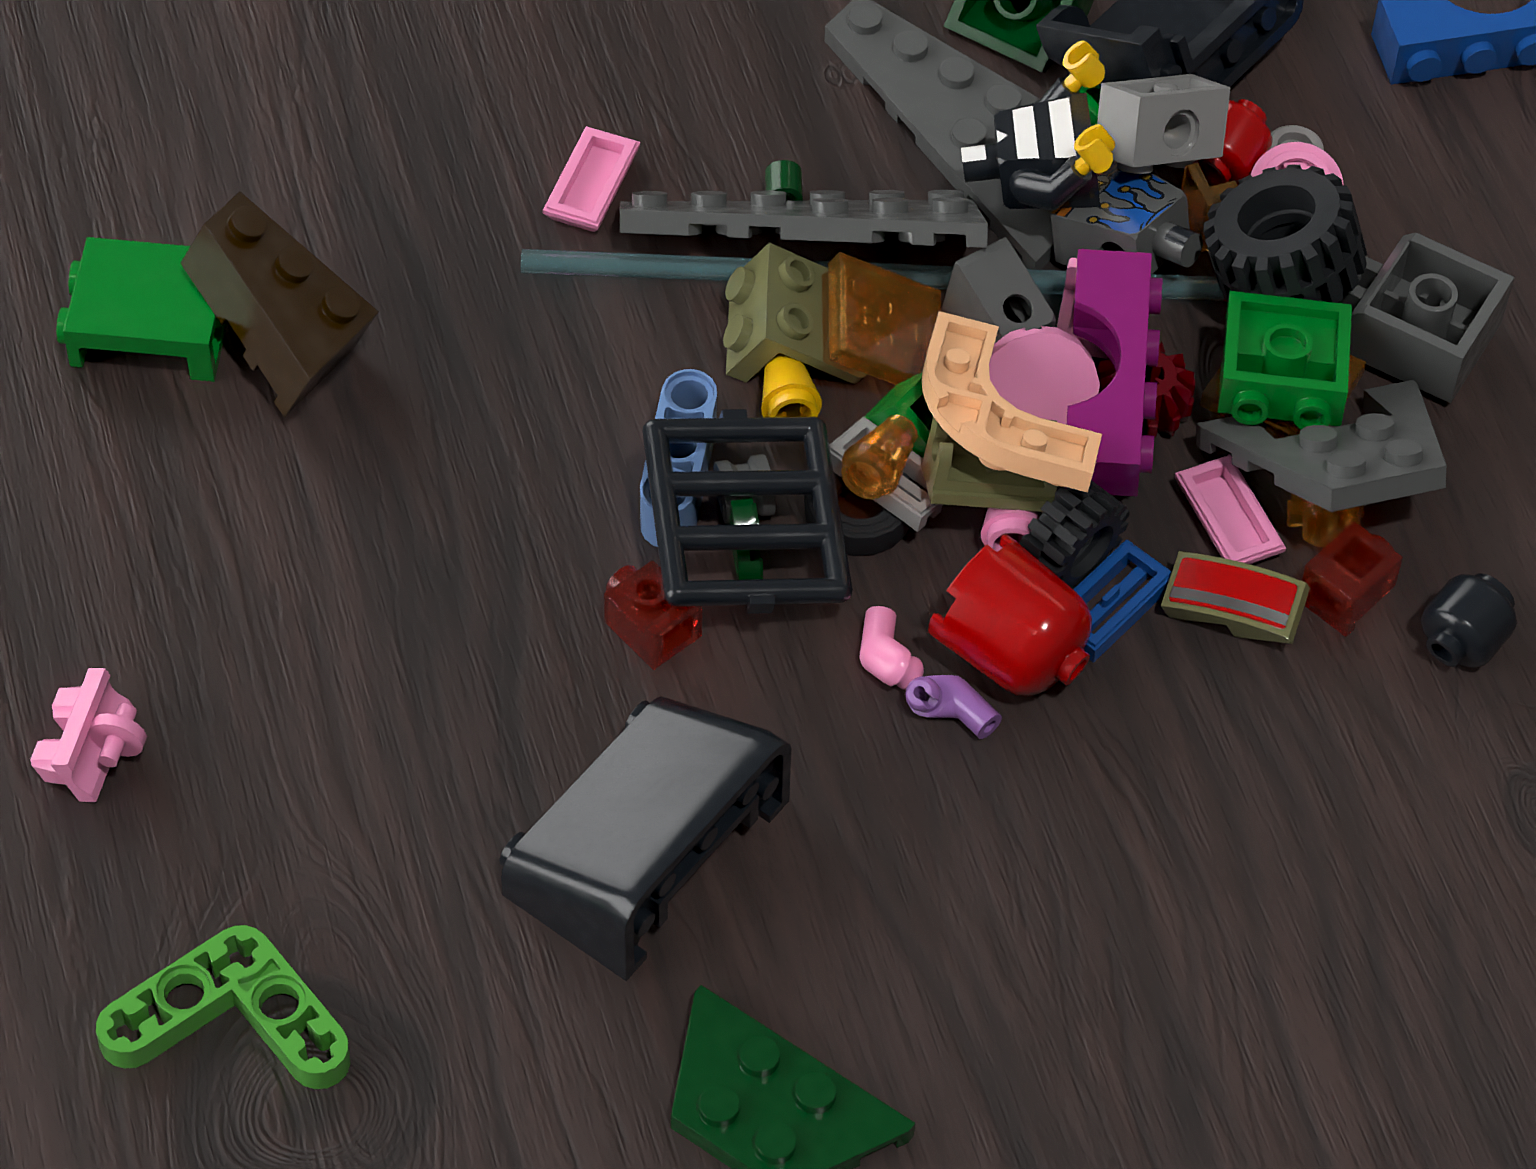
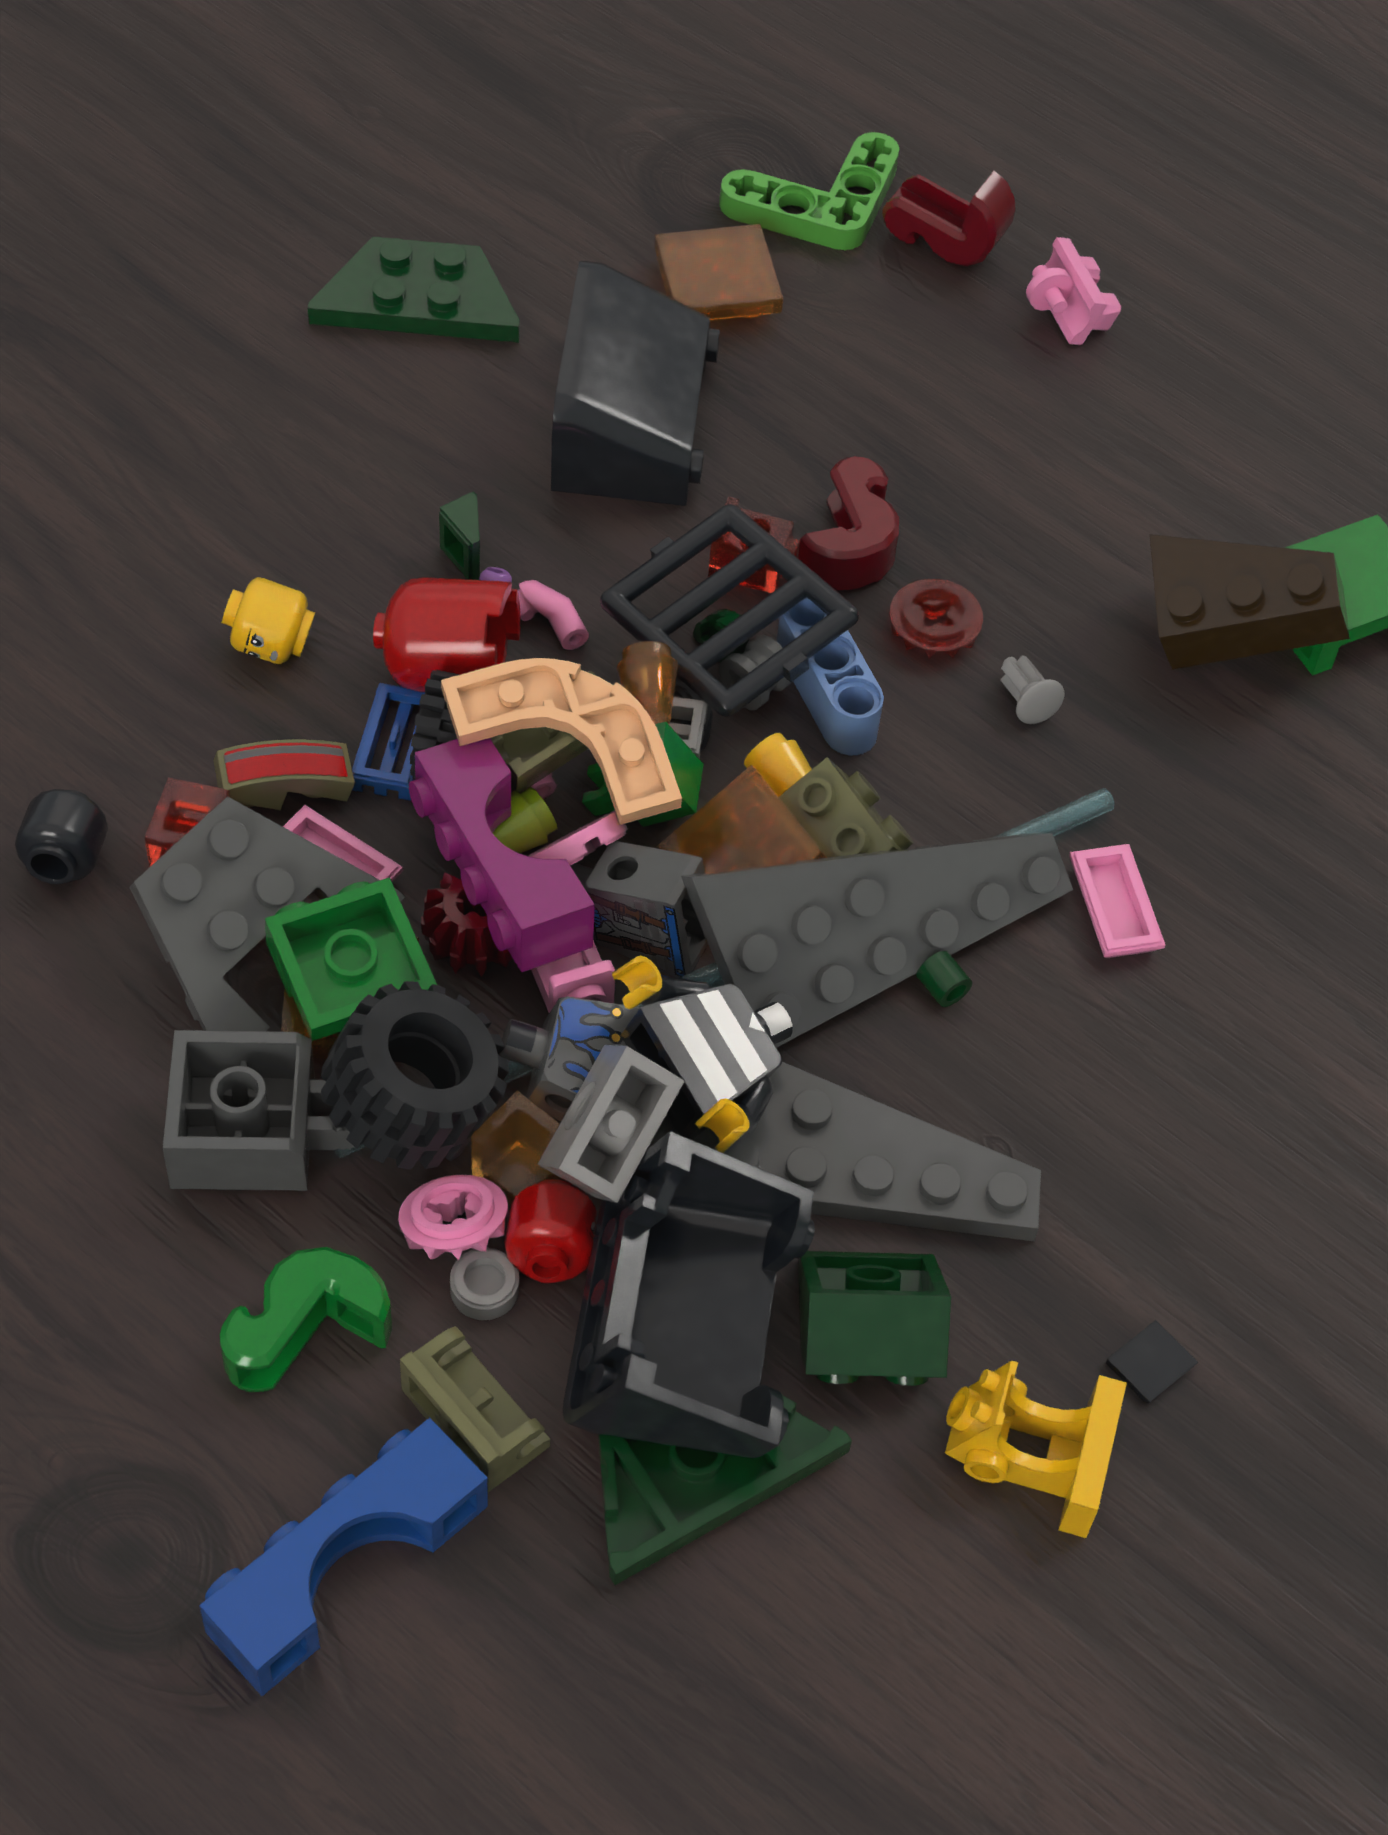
camera: 145 degrees right, 0 degrees up
(137, 873) = (949, 224): none -> dark red animal
(437, 947) = (720, 271): none -> clear orange tile
(508, 369) = (1035, 696): none -> light grey piece
(530, 567) = (866, 529): none -> dark red animal
(548, 458) = (930, 599): none -> clear red gear
(923, 754) = (461, 534): none -> dark green slope
(1169, 747) = (268, 620): none -> yellow head
(1354, 71) = (471, 1406): none -> olive hinge
(1447, 185) = (295, 1304): none -> green animal

